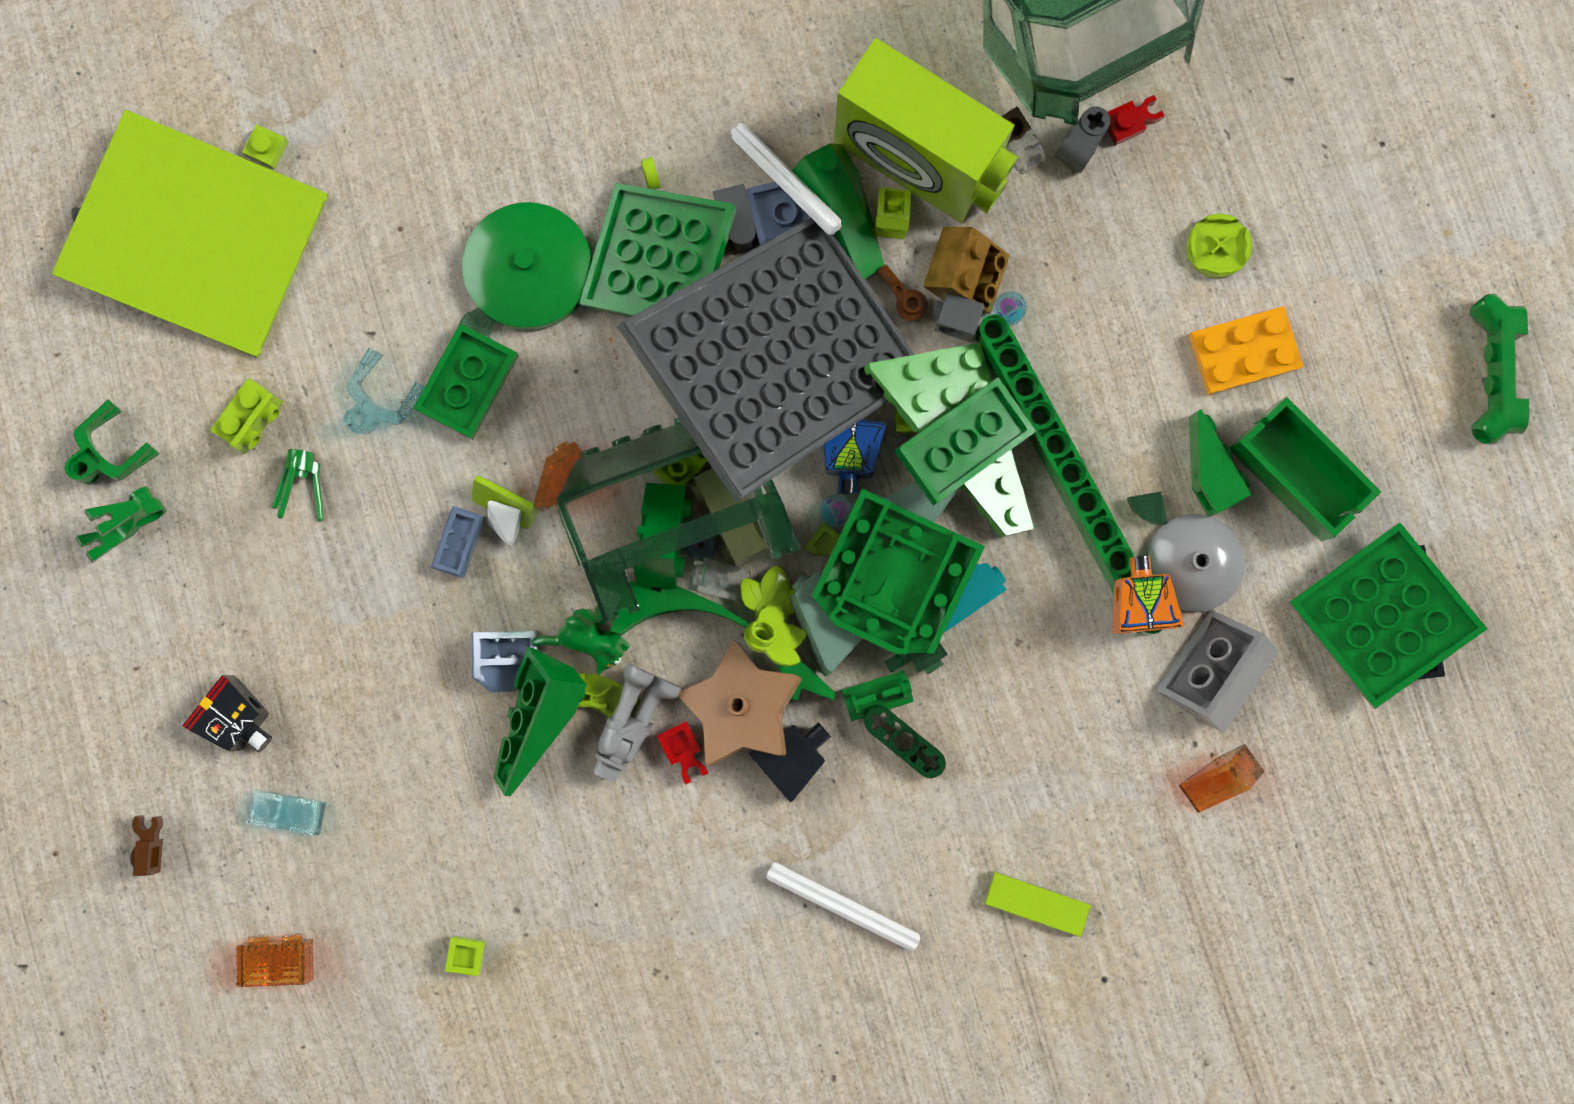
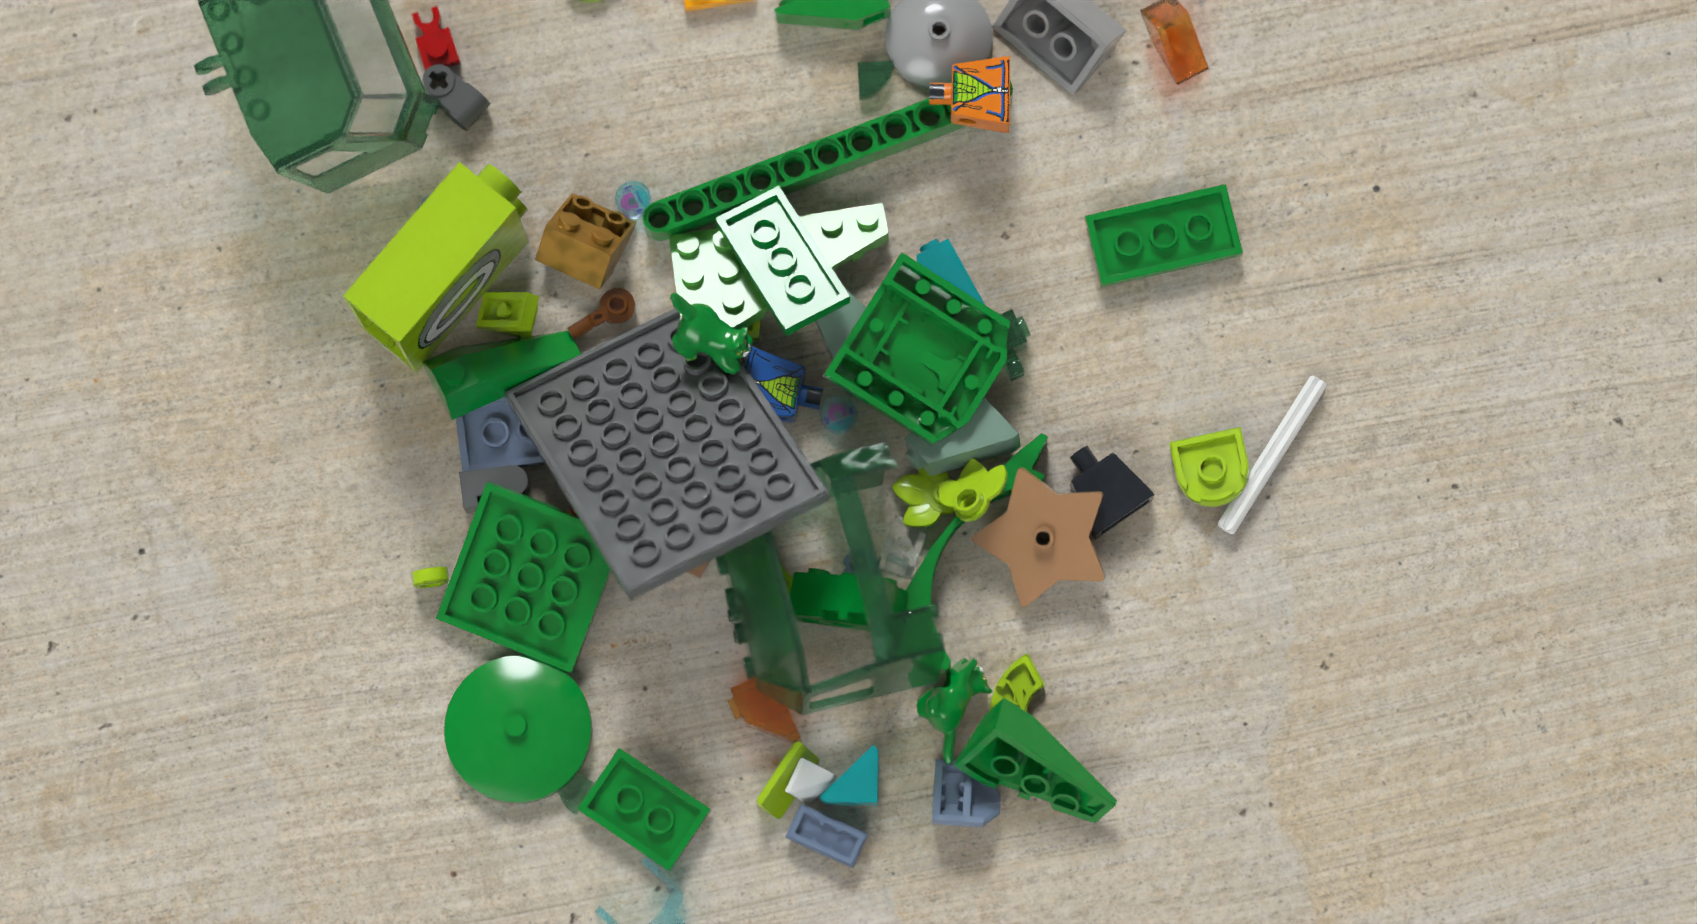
camera: 80 degrees left, 5 degrees down
(465, 955) = (1286, 868): lime plate -> none
(503, 564) = (857, 785): none -> teal slope
(626, 733) = (1060, 668): light grey piece -> none
(680, 746) = (1082, 610): red plate -> none
(741, 544) = (821, 530): olive wedge -> none
(786, 179) = (459, 425): white axle -> none
(822, 541) = (870, 428): lime tile -> none
(824, 852) = (1211, 466): none -> lime tile
(888, 376) = (705, 332): none -> green animal
(888, 691) = (1047, 391): green hinge -> none
(929, 749) = (1111, 344): dark green beam -> none
(957, 317) = (637, 256): dark grey brick -> none
(1023, 142) = (434, 167): clear leg -> none
(1035, 787) = (1163, 235): none -> green plate
(1037, 904) = (1288, 248): lime tile -> none

